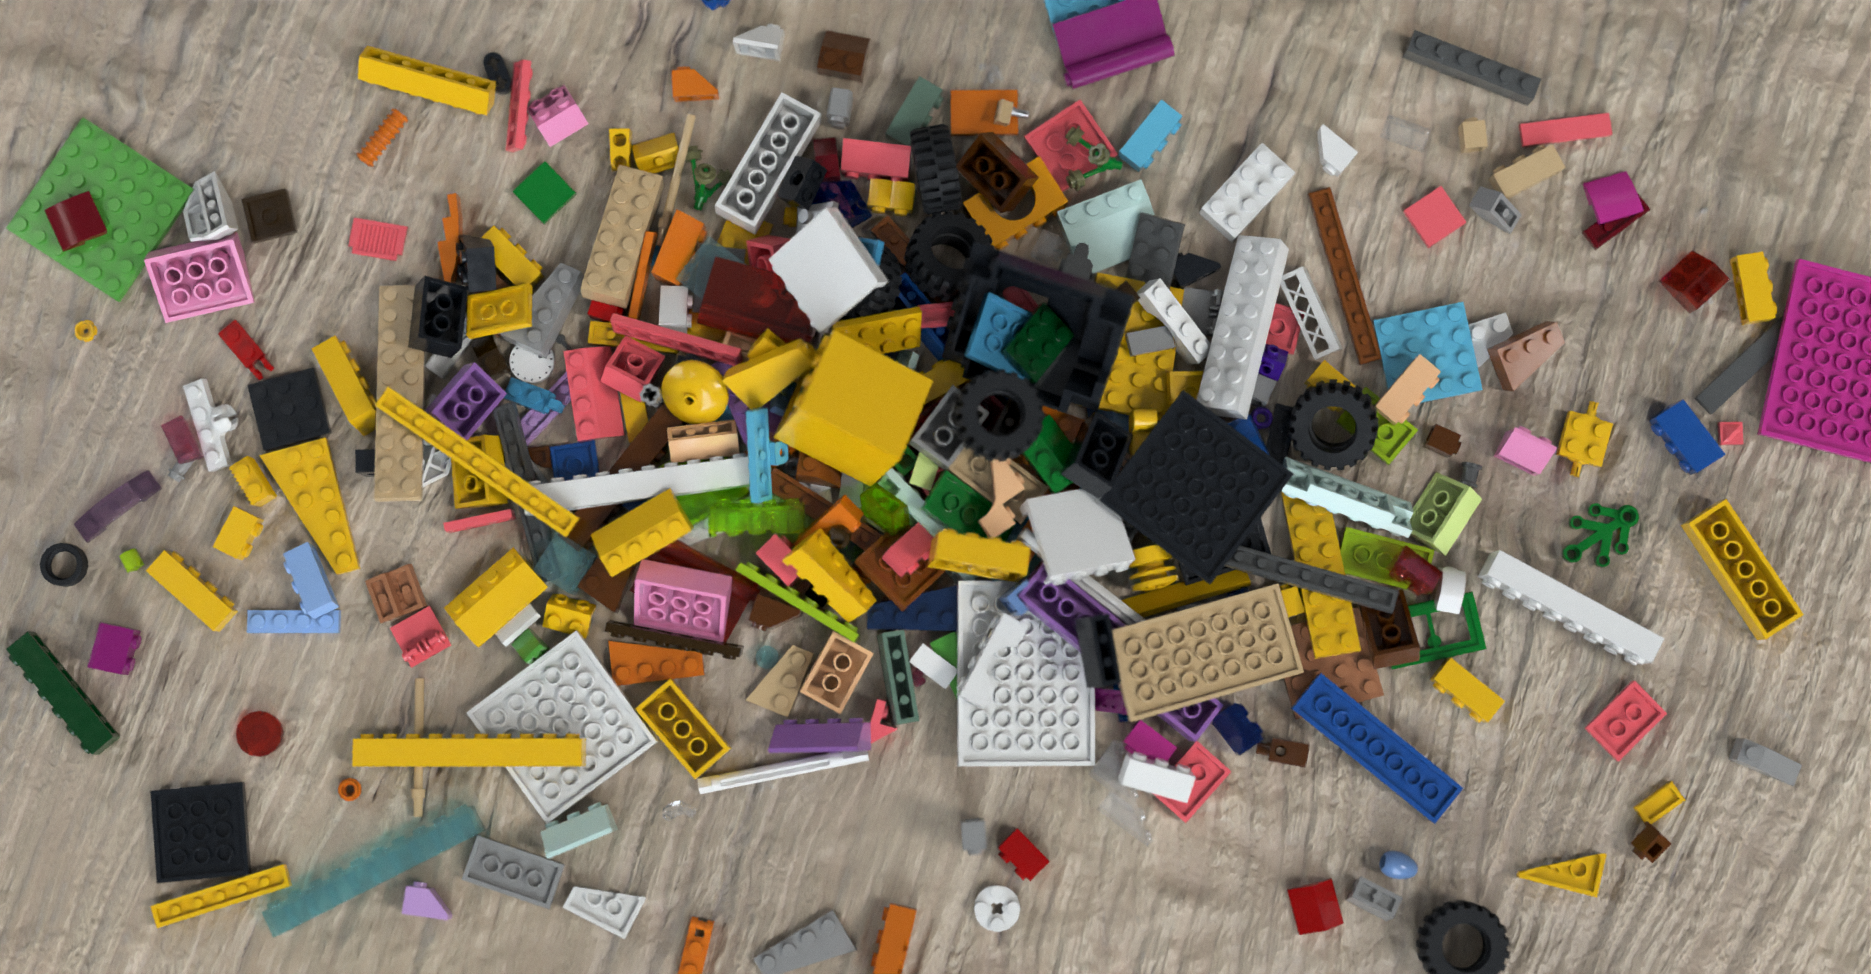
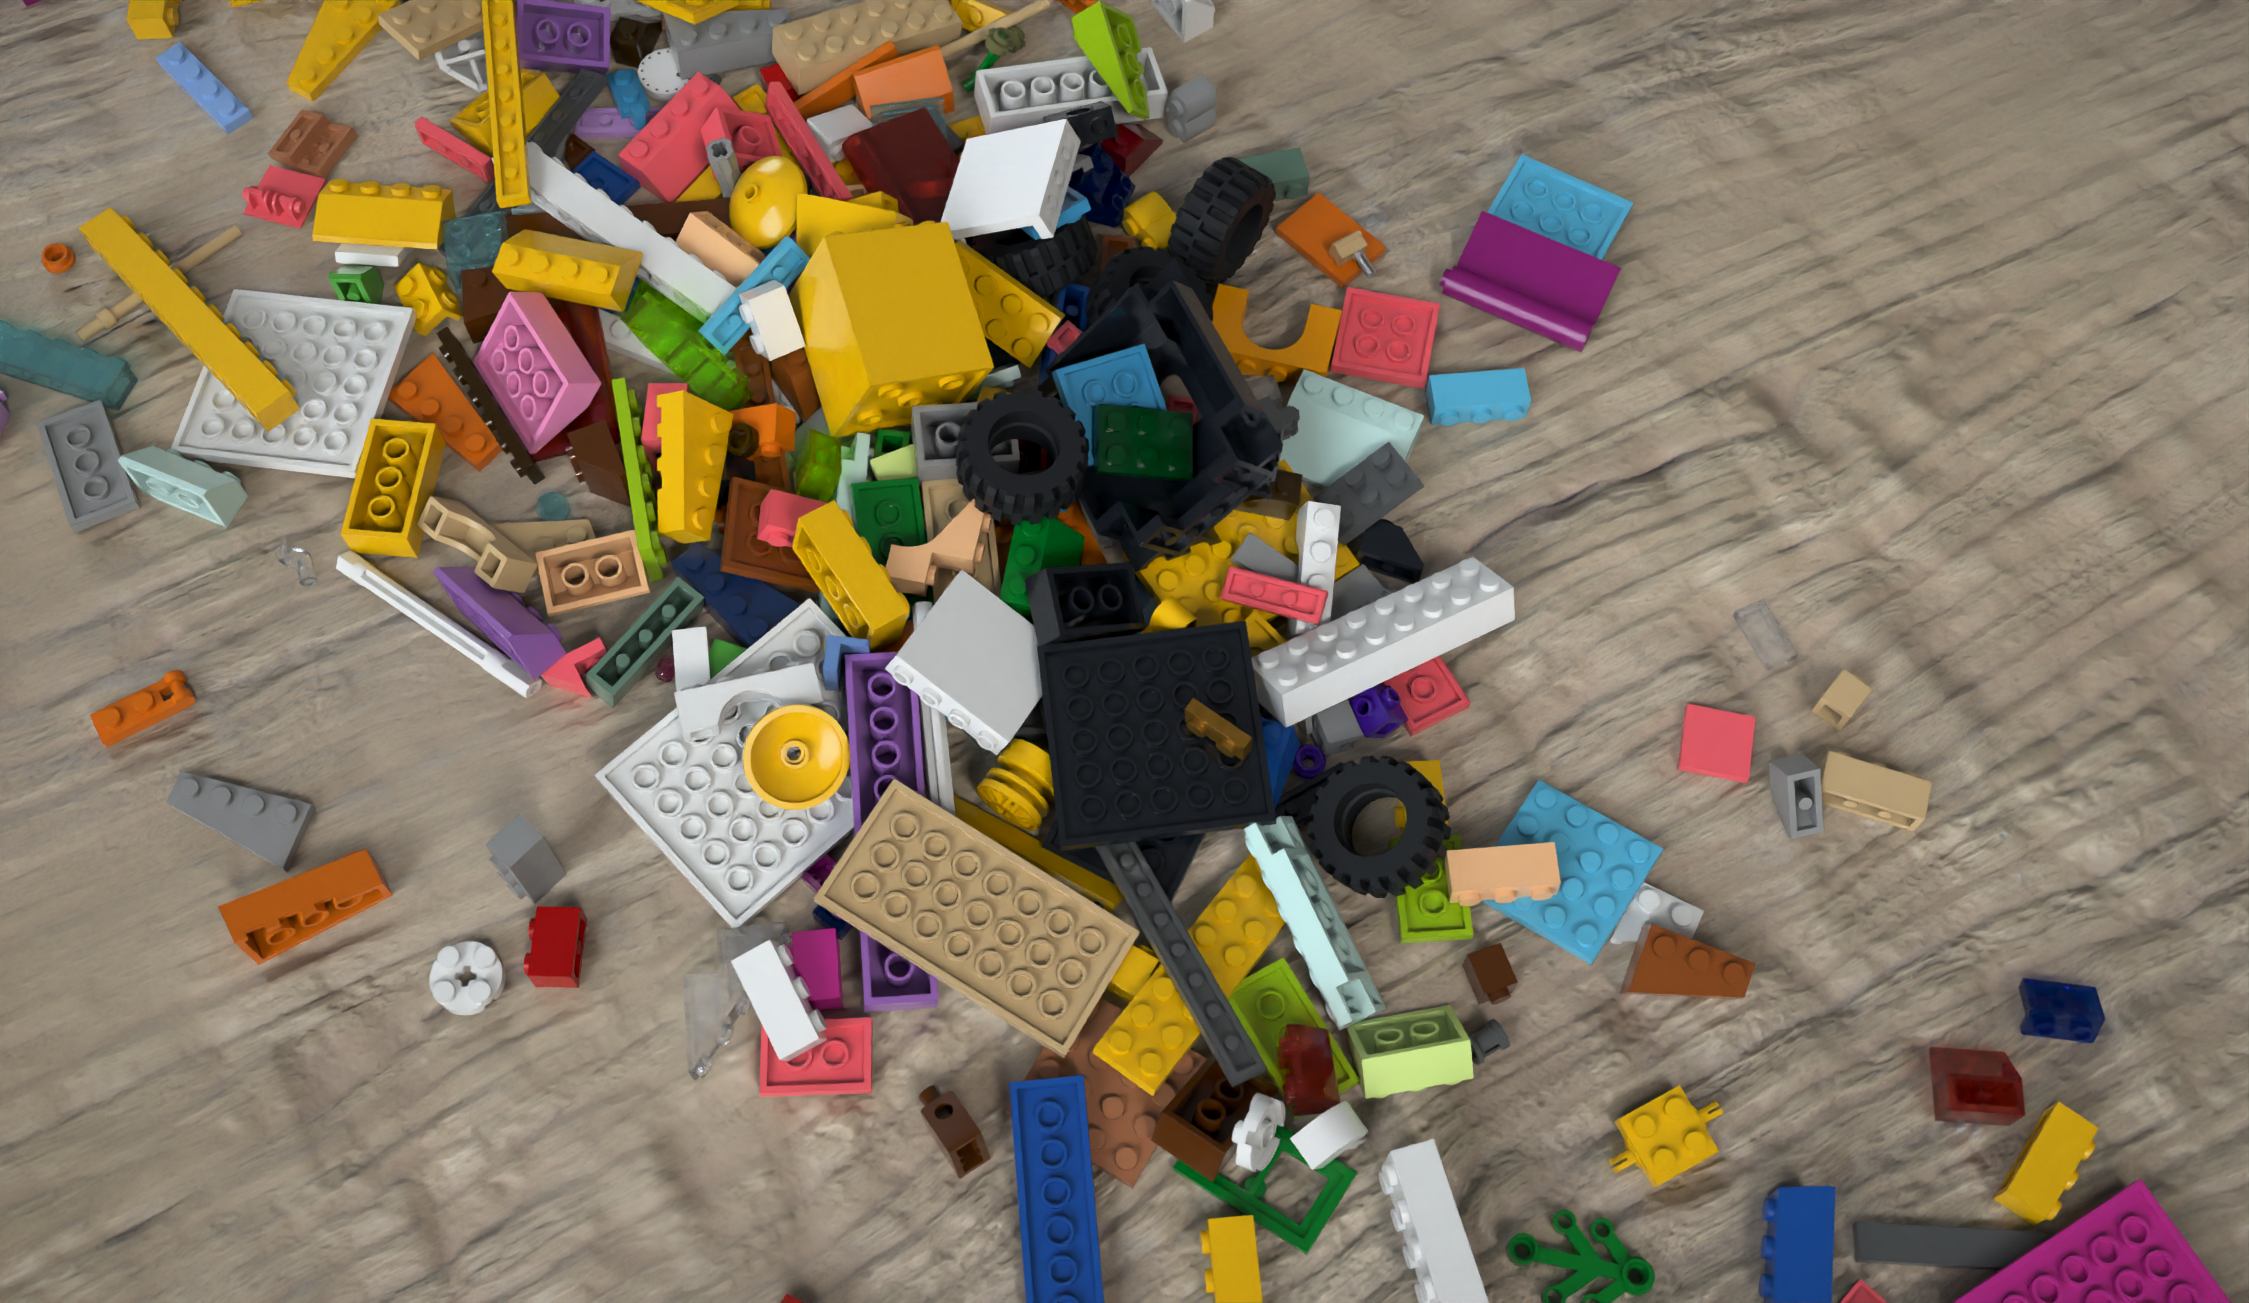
camera: 45 degrees right, 20 degrees down
(259, 733) = (54, 145): clear red tile -> none
(310, 580) = (256, 61): light blue brick -> none
(605, 909) = (117, 583): white wing -> none
(740, 715) = (498, 559): none -> tan arch
(769, 121) = (1112, 47): none -> lime wedge
(784, 461) = (771, 320): none -> white brick
(843, 56) = (1244, 81): reddish brown slope -> none
(875, 160) = (1166, 166): coral slope -> none
(996, 172) = (1281, 284): reddish brown brick -> none
(1044, 664) = (812, 773): none -> yellow dish
(1097, 154) = (1400, 344): olive plant -> none
(1098, 650) = (861, 784): black brick -> none
(1172, 356) = (1274, 595): none -> coral tile
(1237, 728) = (927, 1045): clear blue slope -> none
(1239, 459) = (1228, 737): none -> pearl gold plate
(1246, 192) = (1528, 531): white brick -> none
(1318, 310) = (1484, 714): white fence -> none
(1333, 151) = (1665, 581): white slope -> none
(1344, 276) = (1550, 713): dark orange tile -> none
(1422, 626) = (1257, 1132): none -> white plate
(1471, 68) = (1908, 633): dark grey brick -> none
(1525, 450) = (1579, 1072): bright pink slope -> none
(1565, 130) = (1965, 792): coral tile -> none
(1600, 234) = (1935, 939): dark red tile -> none
(1613, 197) = (1954, 909): dark pink slope -> none
(1699, 203) = (2060, 1010): none -> clear blue bracket

